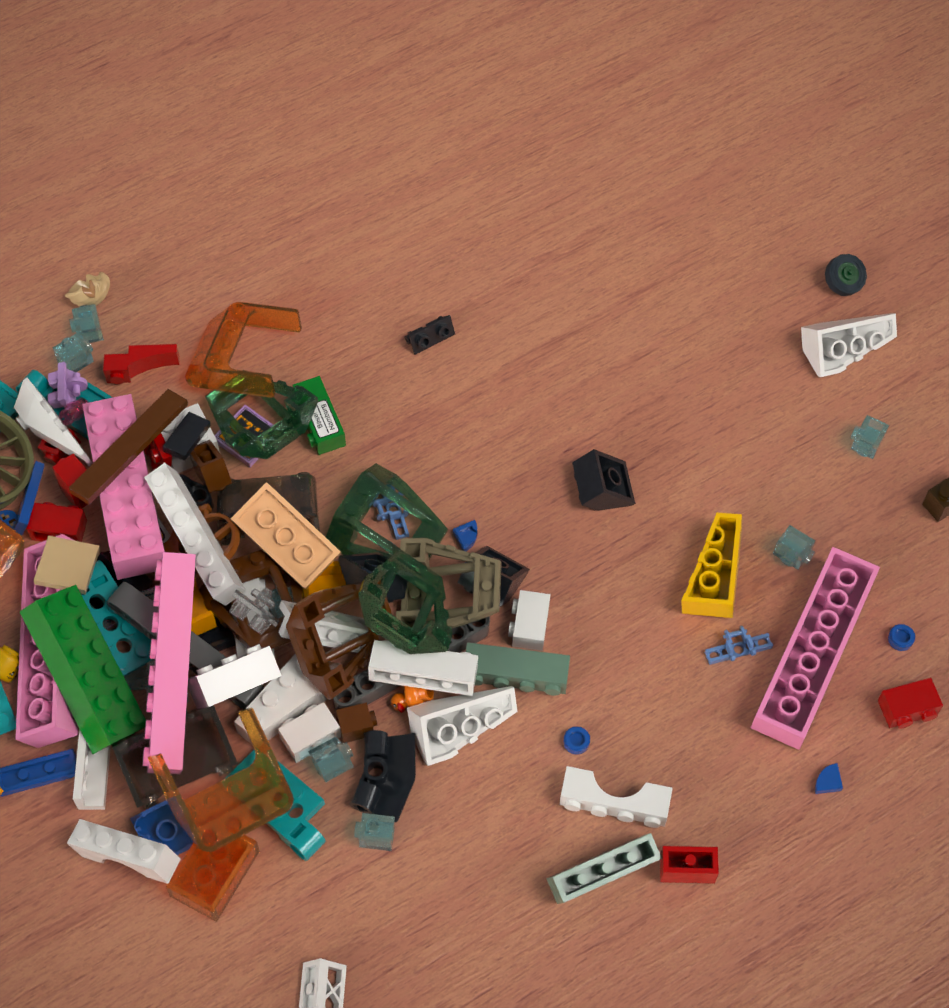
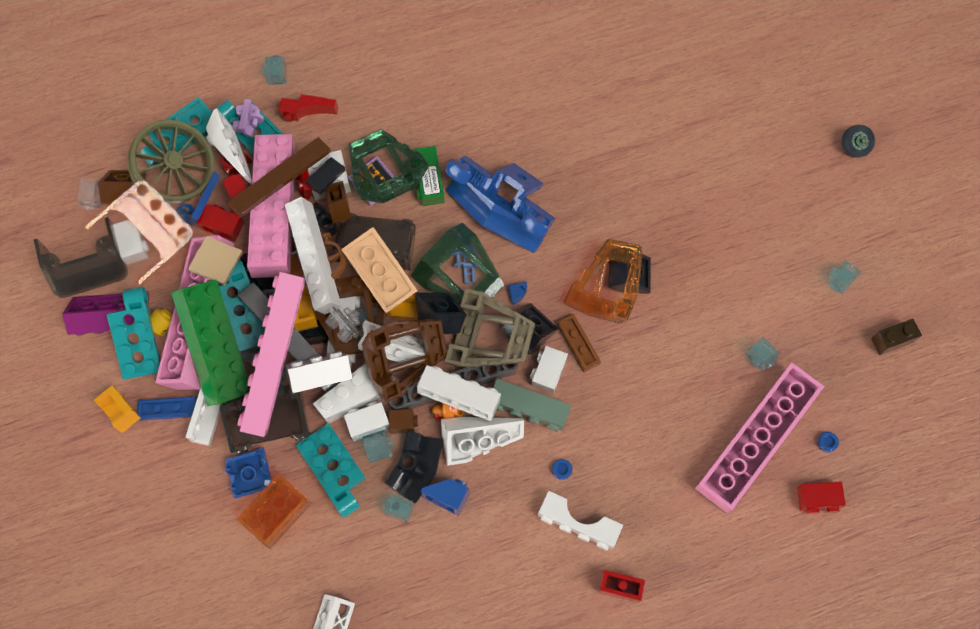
camera: 15 degrees right, 10 degrees up
(72, 411) = (247, 139): clear pink axle -> none
(74, 352) = (261, 91): clear light blue brick -> none
(91, 291) = (282, 45): tan hair -> none
(143, 855) = (213, 485): white arch -> none
(212, 358) = (368, 103): clear orange windscreen -> none
(234, 804) = (297, 468): clear orange windscreen -> none
(387, 423) = (477, 193): none -> blue piece
(416, 640) = (456, 372): clear green windscreen -> none
(431, 334) = (529, 127): black hinge -> none
(436, 799) = (447, 494): none -> blue slope
(551, 528) = (601, 308): none -> clear orange windscreen
(559, 581) = (578, 342): none -> dark orange tile
(604, 868) = (558, 575): brick -> none
(715, 577) = (696, 365): yellow wedge -> none
(732, 655) = (694, 421): medium blue piece -> none
(829, 780) = (744, 542): blue tile -> none
(841, 342) = (840, 195): white wedge -> none

